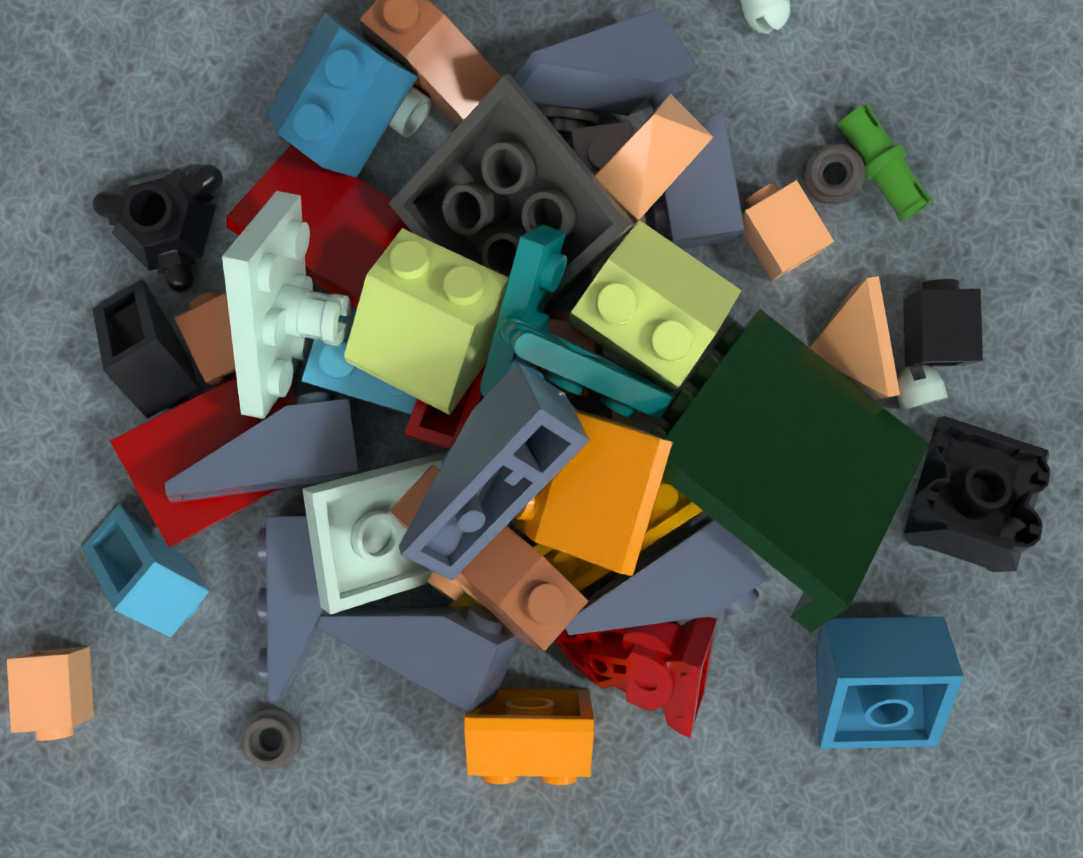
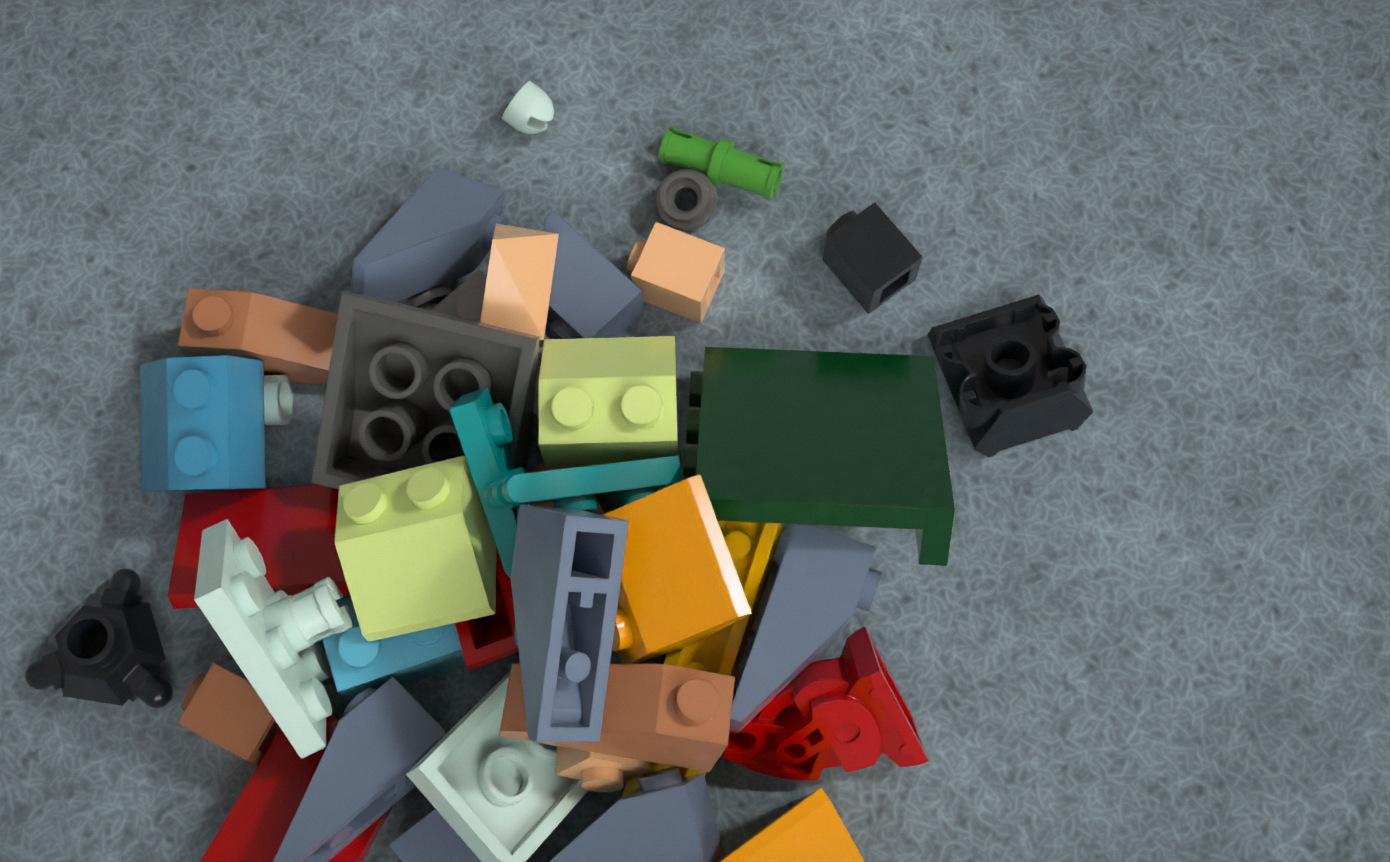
camera: 35 degrees left, 15 degrees down
(143, 350) = (166, 780): black slope -> none
(859, 341) = (812, 316): light nougat slope -> none
(885, 681) = (1059, 587): dark azure slope -> none
(920, 392) = (895, 322): light aqua hinge -> none

